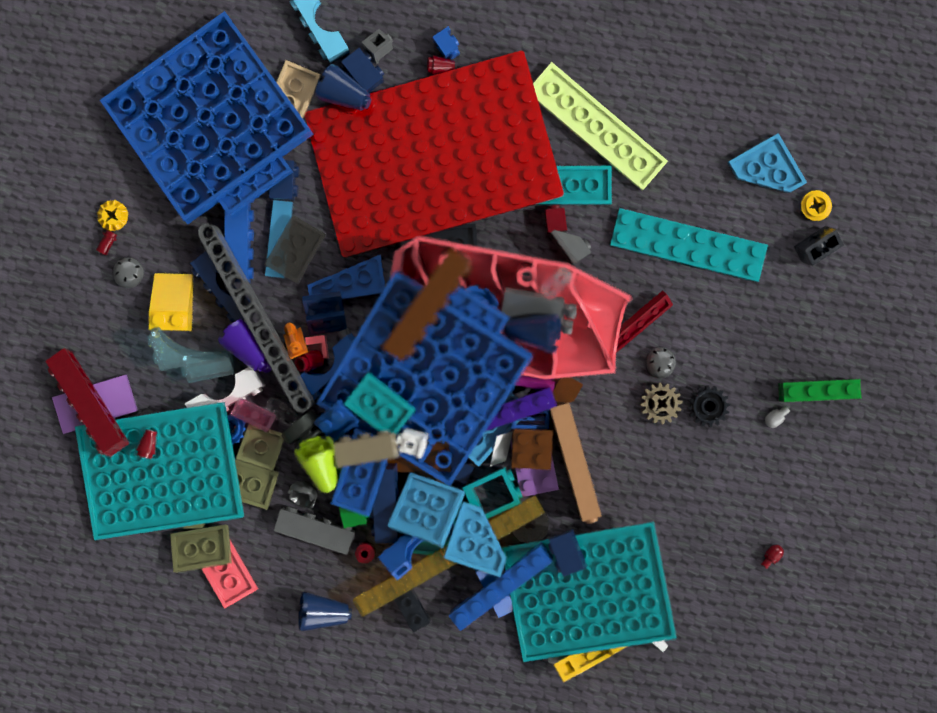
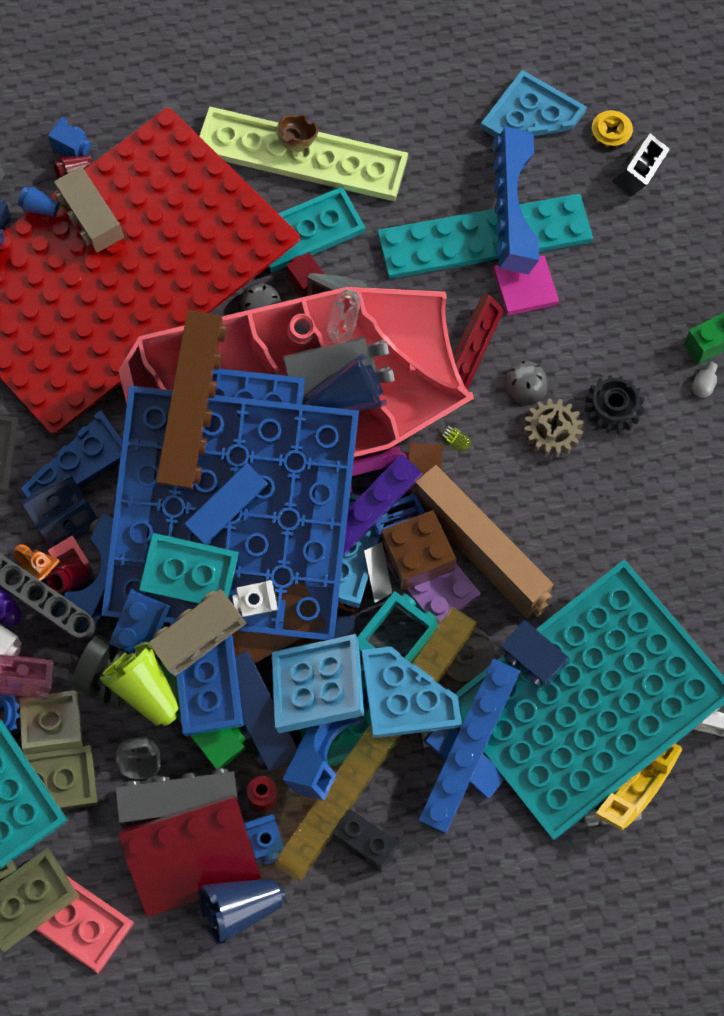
camera: 30 degrees left, 20 degrees down
(306, 567) = (186, 851): none -> dark red slope
(355, 572) = (265, 826): none -> blue brick
(403, 86) = (37, 202): none -> blue cone
(421, 376) = (226, 503): none -> blue tile
(432, 109) = (88, 210): none -> dark tan brick
(517, 225) = (260, 297): none -> dark grey helmet
(598, 381) = (458, 439): none -> clear neon green piece
(599, 114) = (296, 132): none -> reddish brown hair
(696, 293) = (526, 292): none -> dark pink tile
(704, 267) = (516, 241): none -> blue arch

